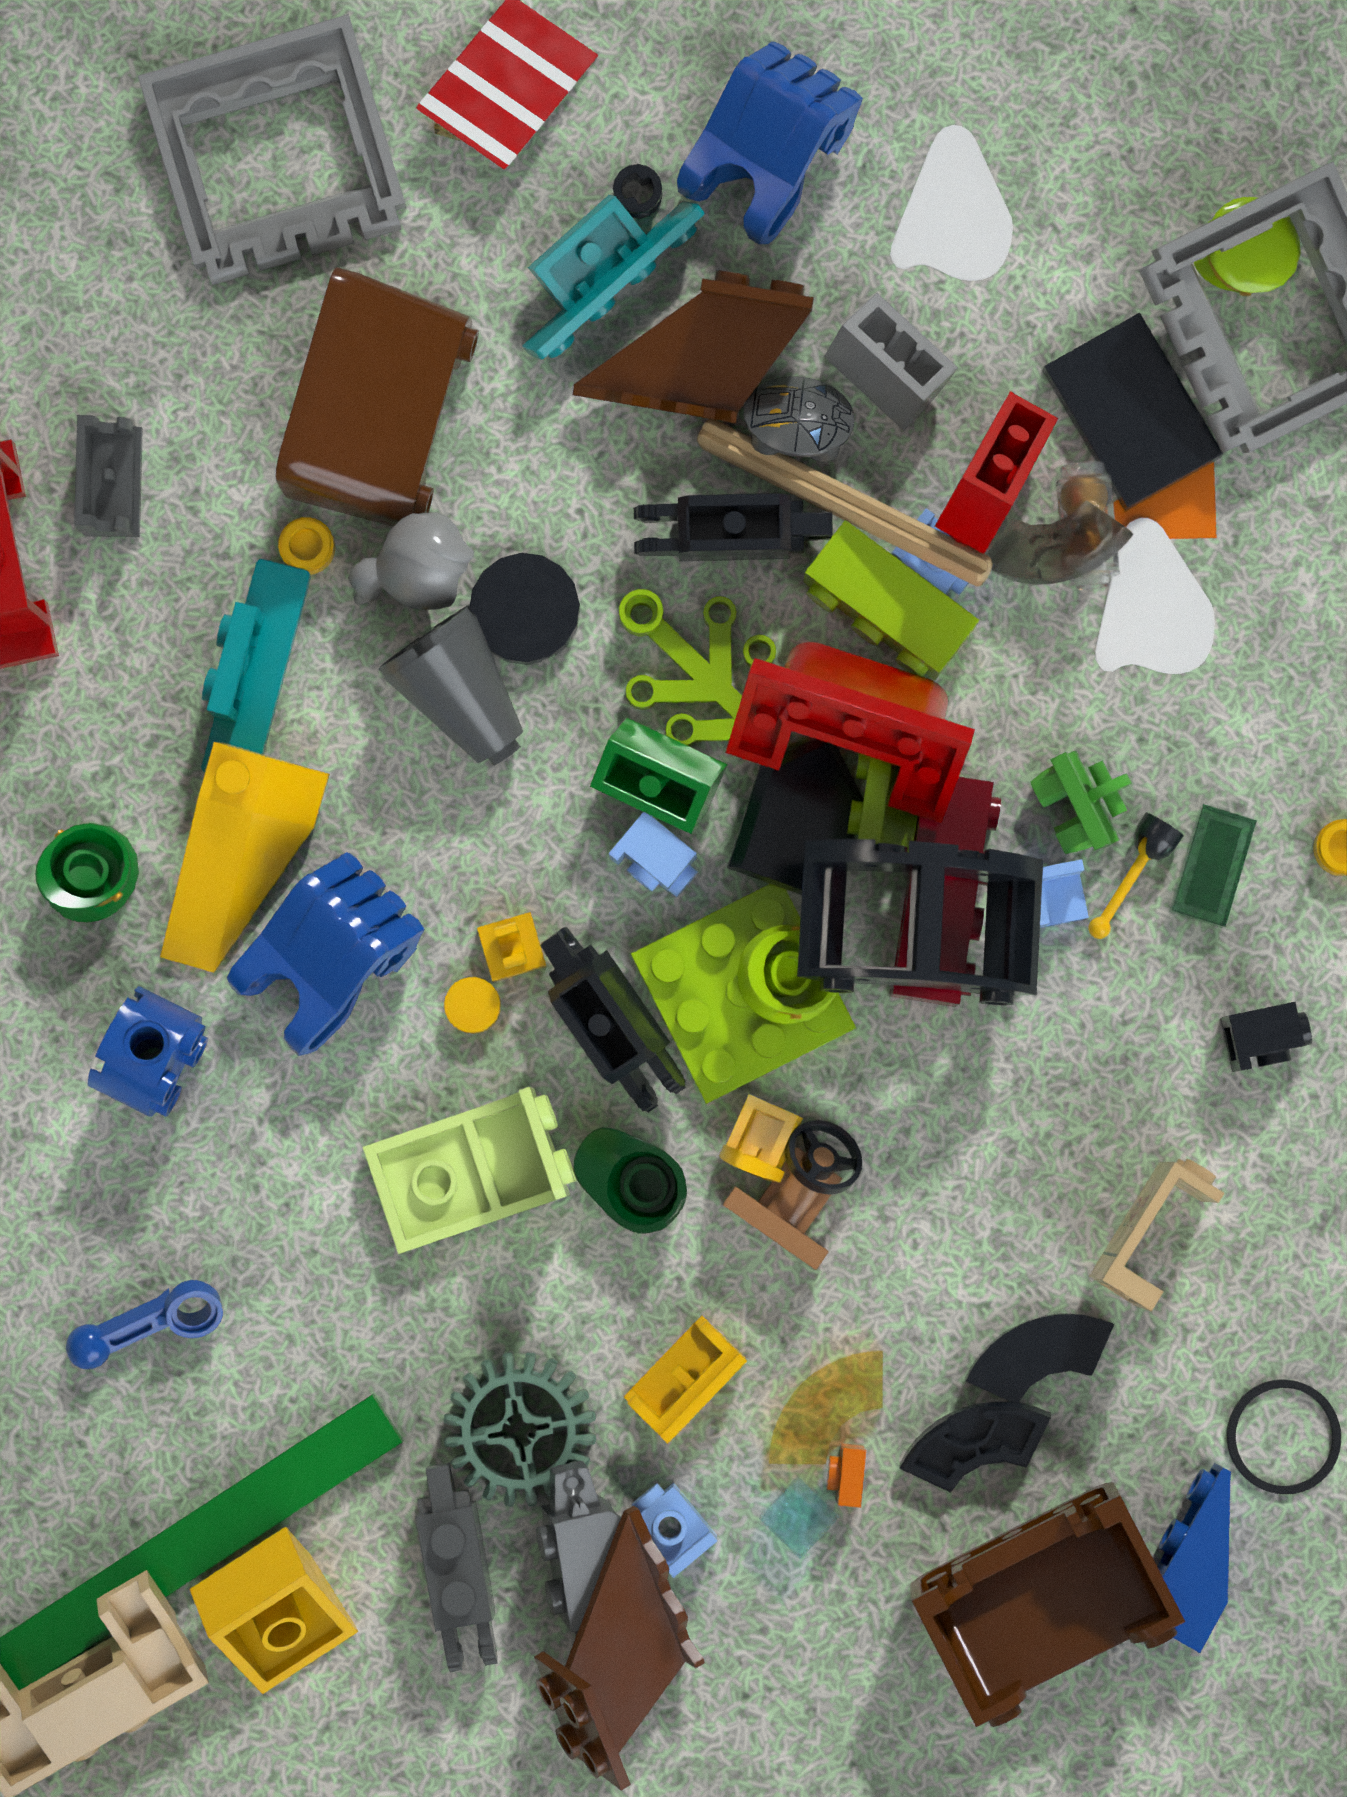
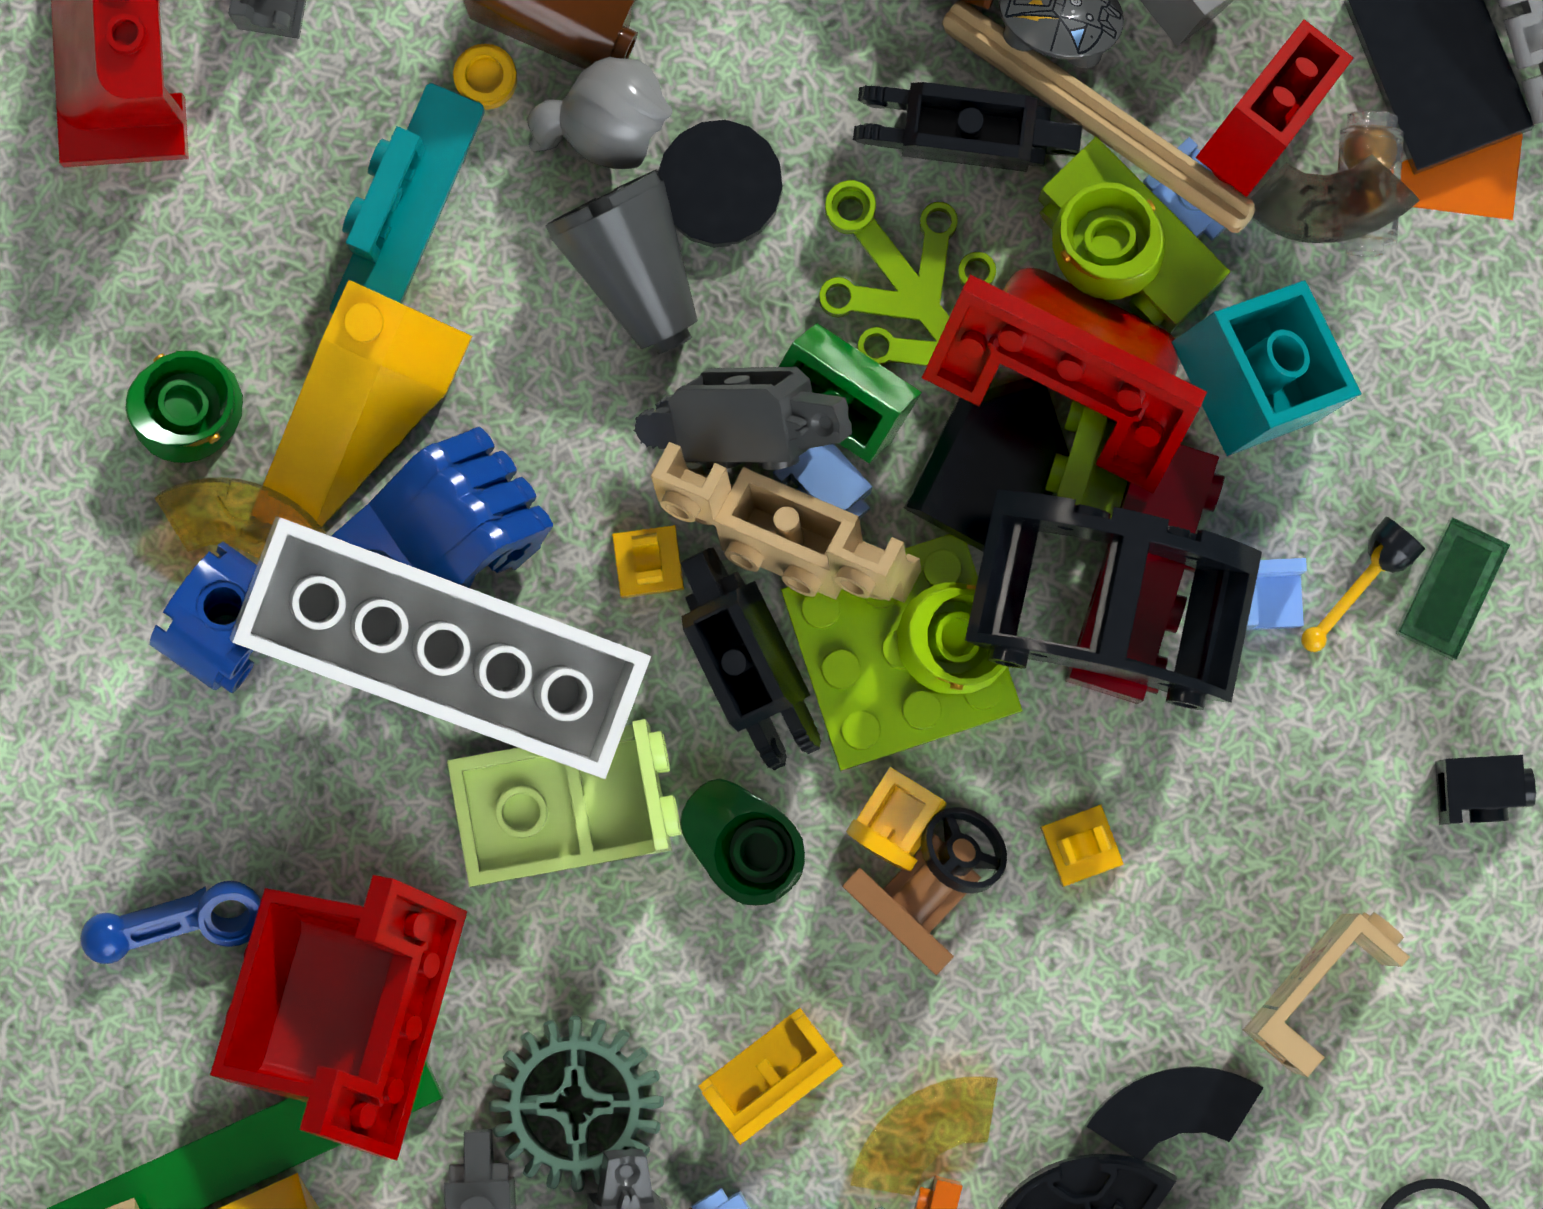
camera: 10 degrees right, 0 degrees up
(153, 961) = (228, 512): none -> clear yellow tile
(303, 1377) = (342, 1008): none -> red windscreen
(340, 1051) = (439, 647): none -> white brick
(472, 1005) = (596, 613): yellow tile -> none
(577, 810) = (746, 417): none -> dark grey hinge
(625, 904) = (783, 531): none -> tan bracket
(870, 609) = (1108, 241): none -> lime piece
(925, 1137) = (1081, 845): none -> yellow tile
(1022, 698) = (1266, 367): none -> teal brick
(1071, 780) = (1306, 467): bright green hips -> none
(1154, 608) = (1430, 288): white sticker -> none

